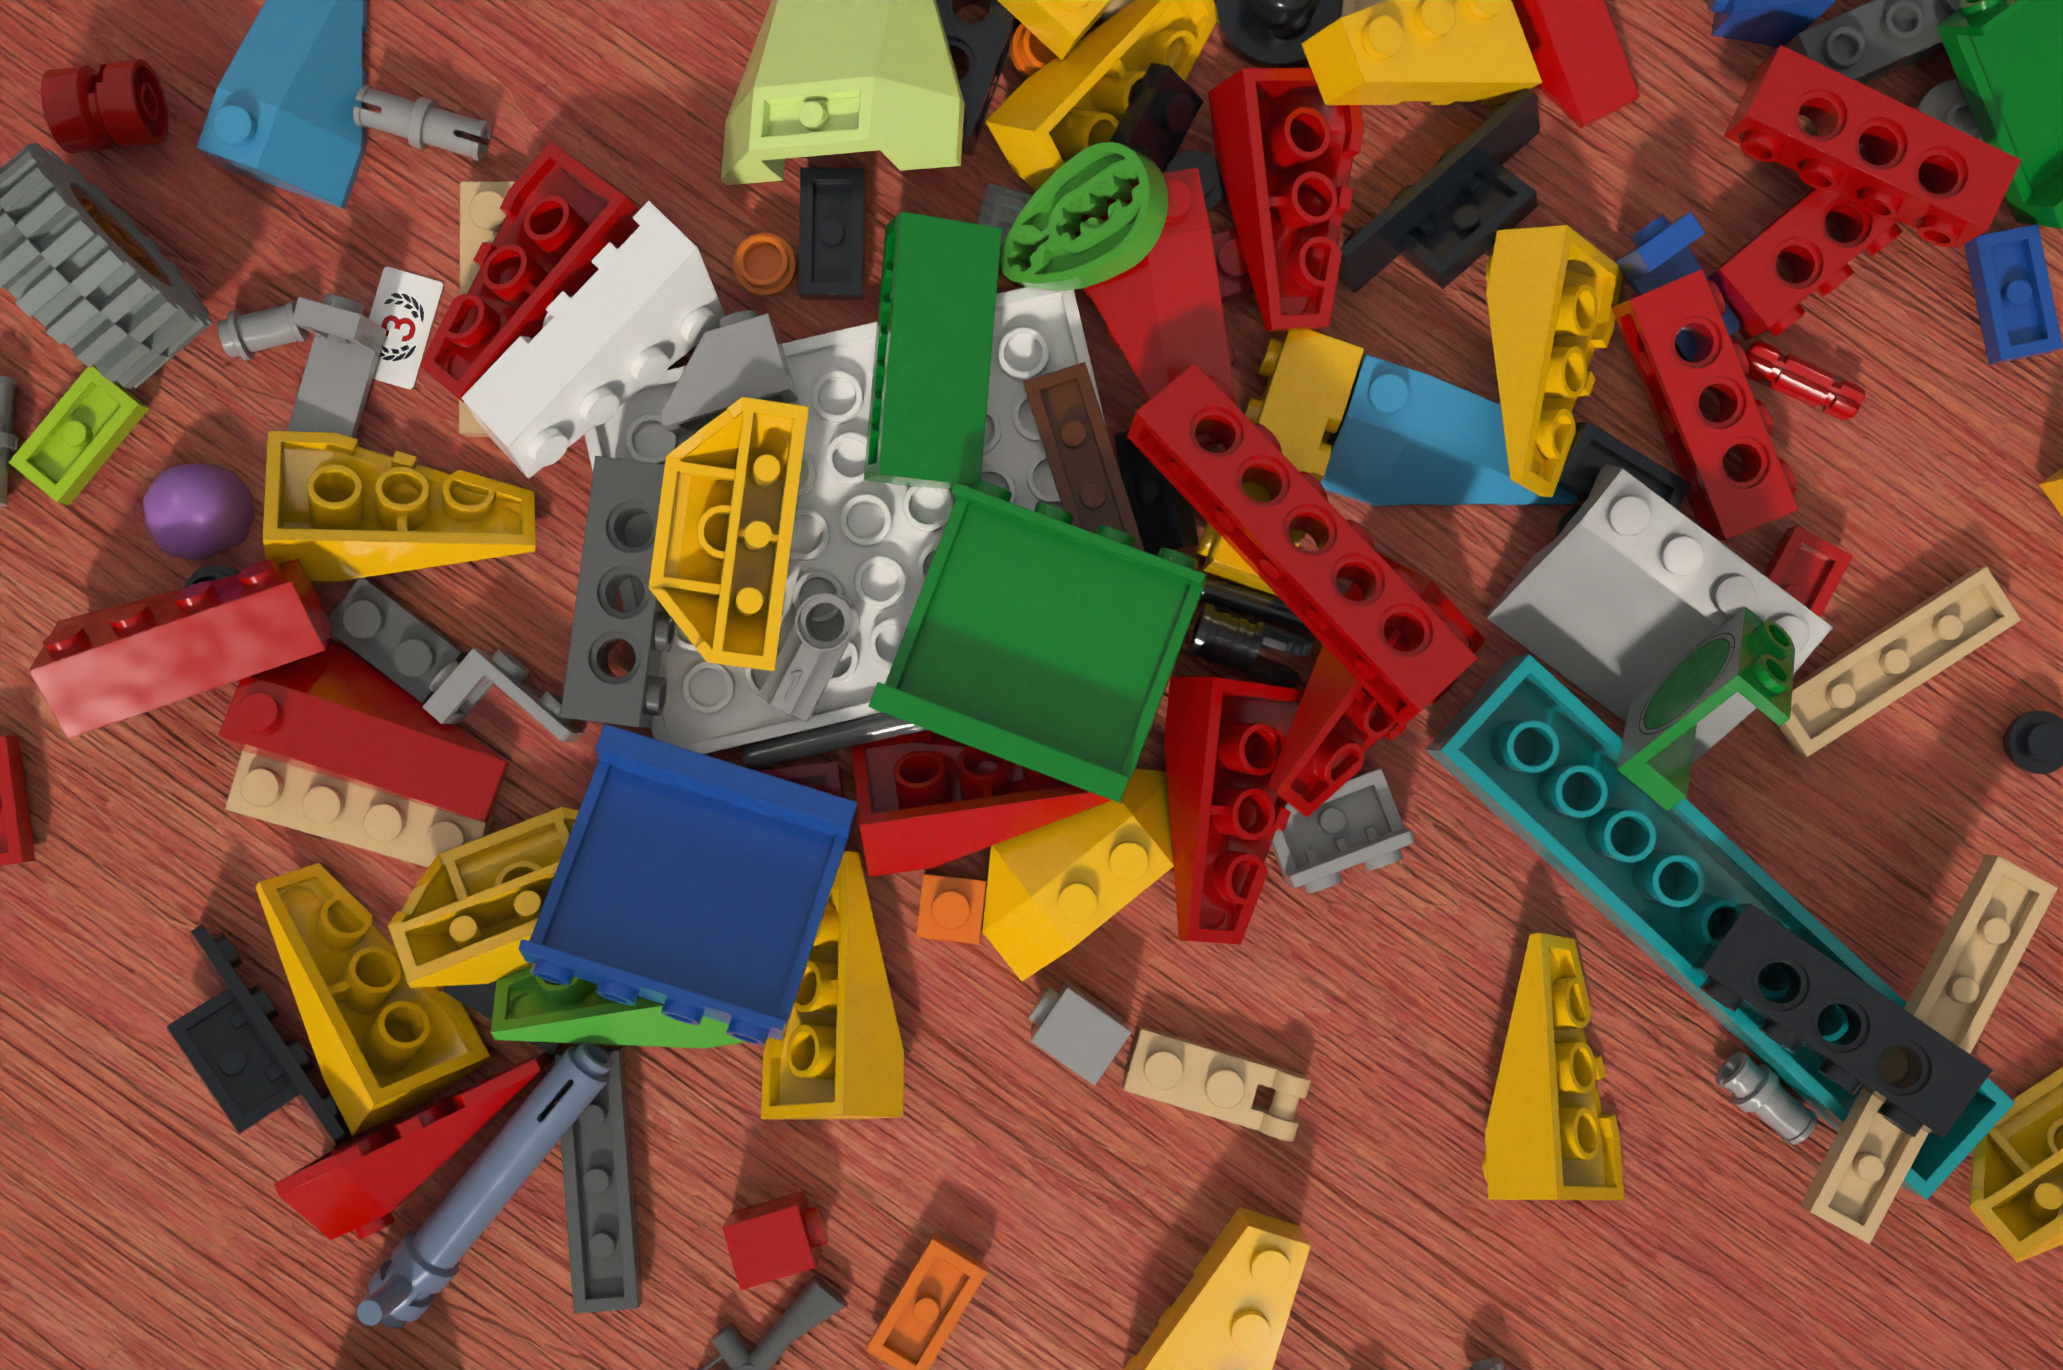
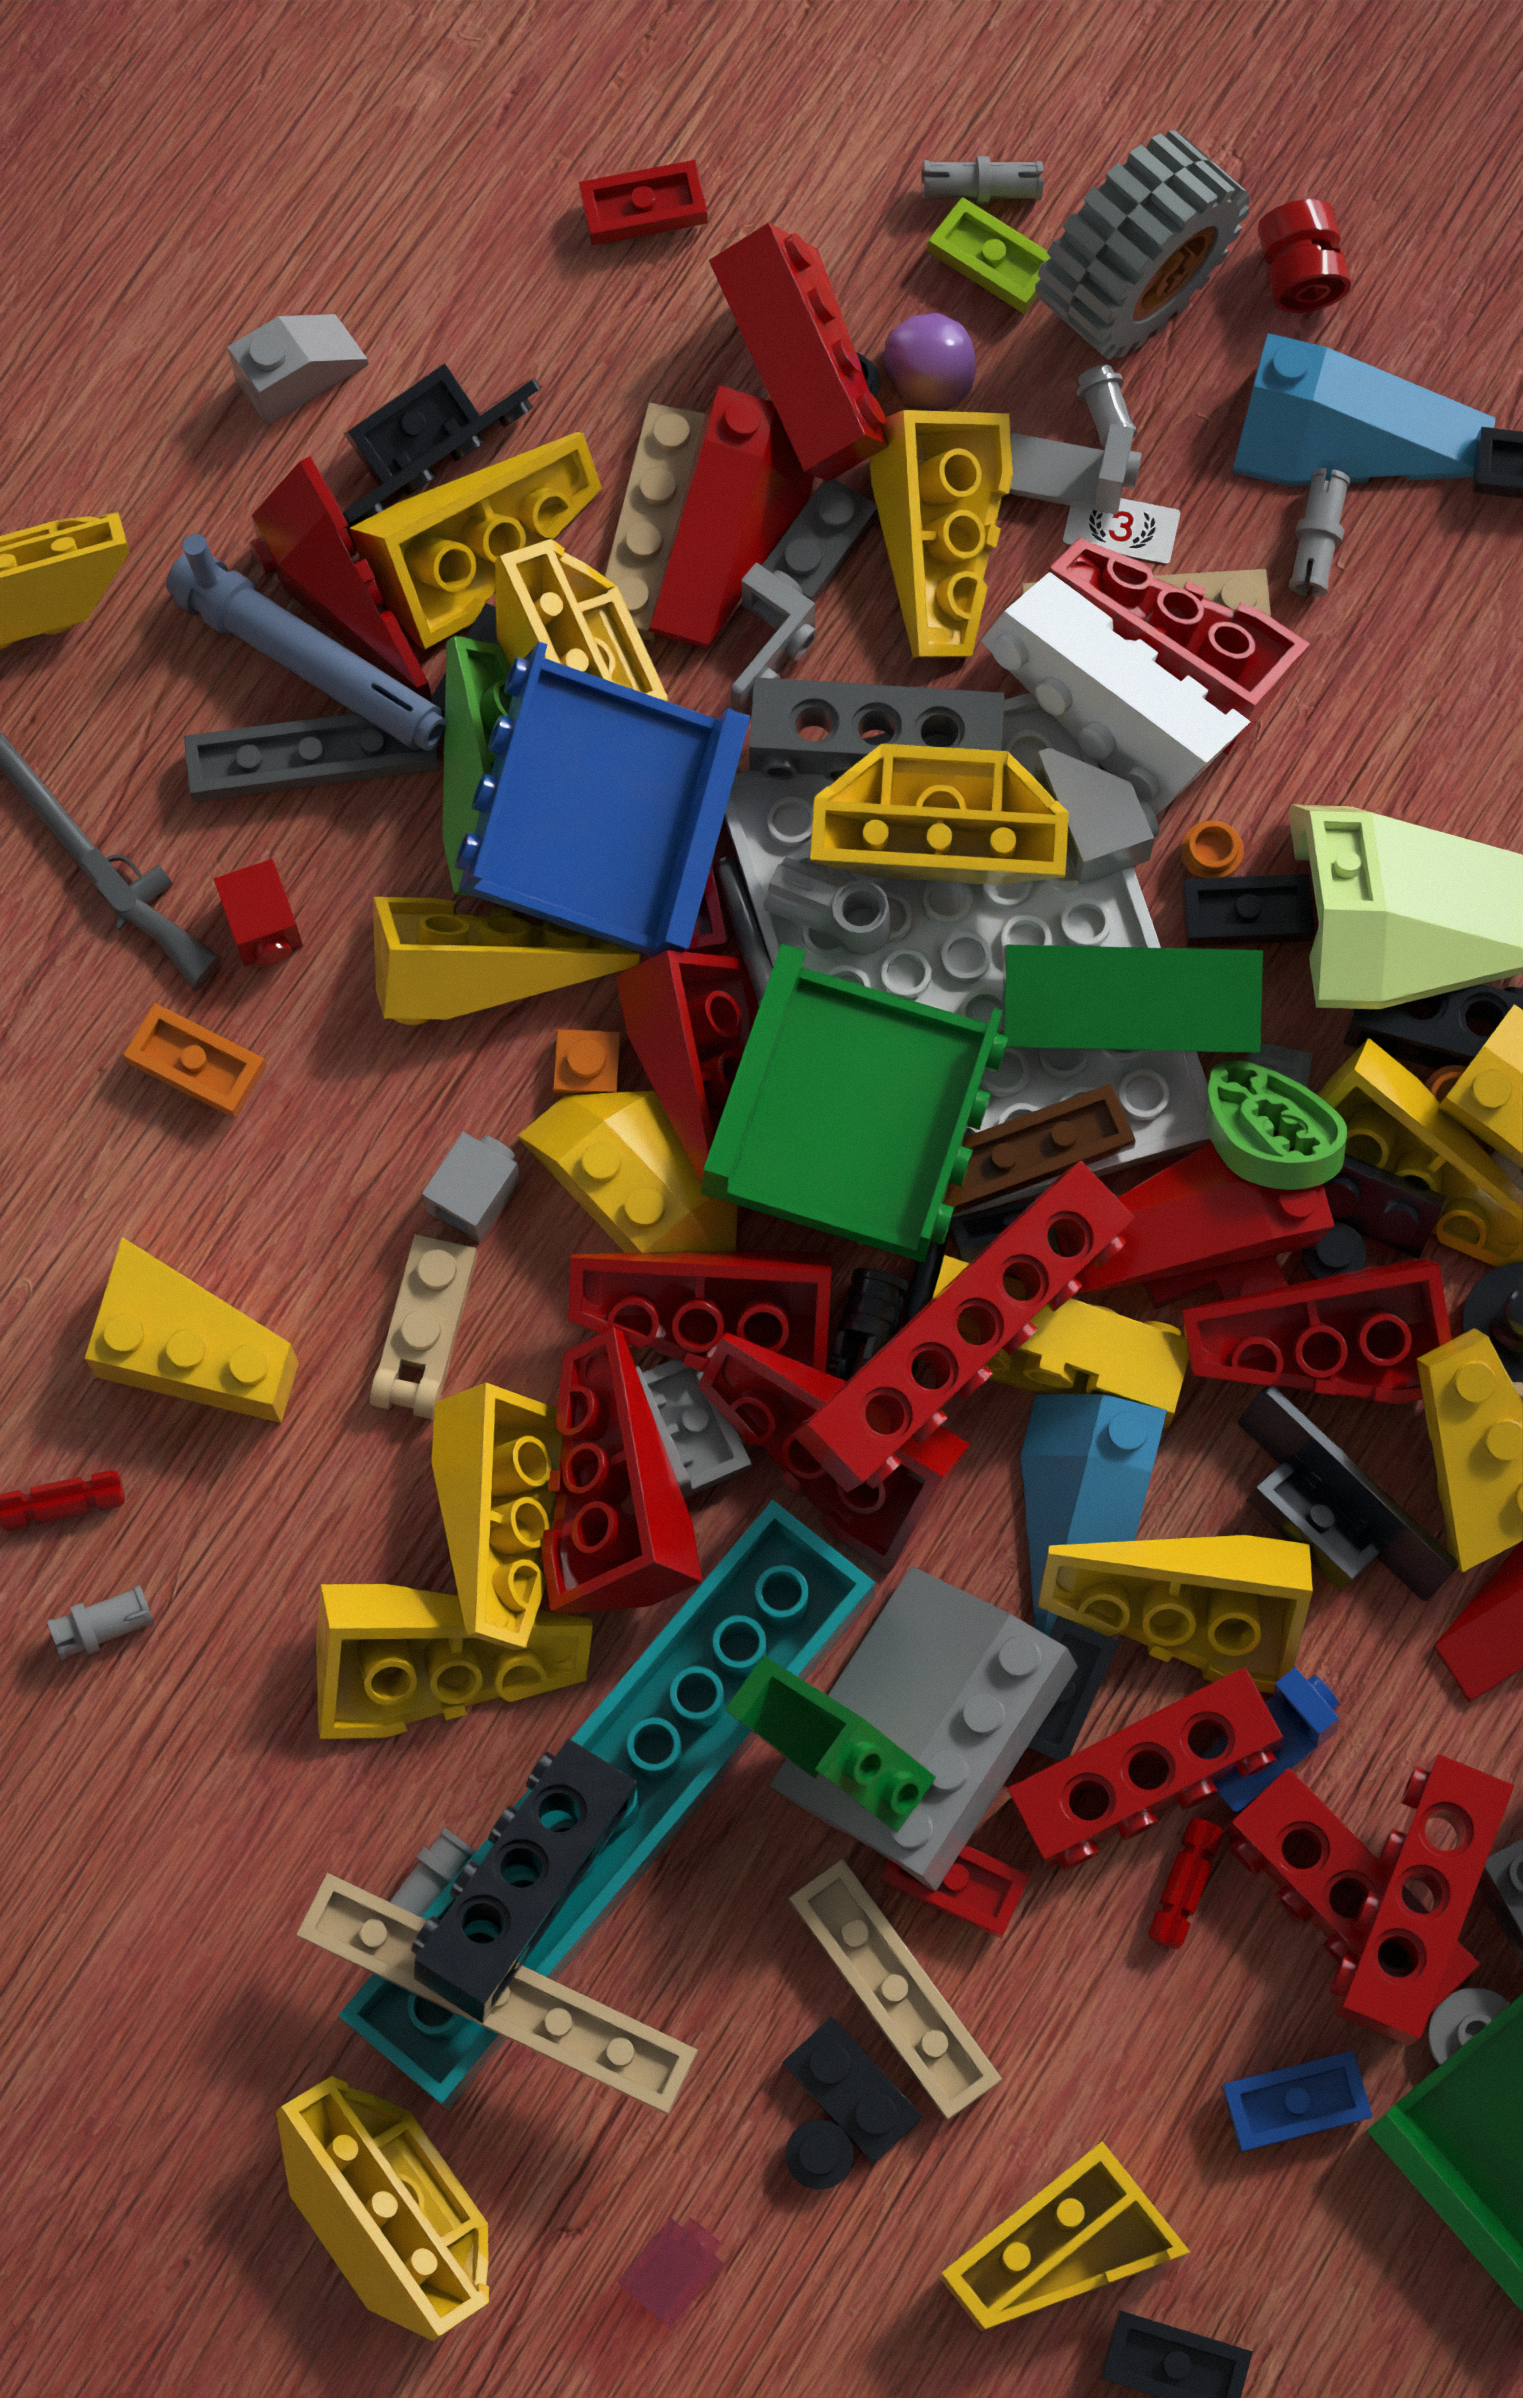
camera: 90 degrees right, 15 degrees down
(148, 1184) = (293, 361): none -> light grey slope
(1414, 1019) = (495, 1503): none -> yellow wedge
(1429, 903) = (618, 1508): none -> red wedge
(1977, 707) = (852, 2090): none -> black plate

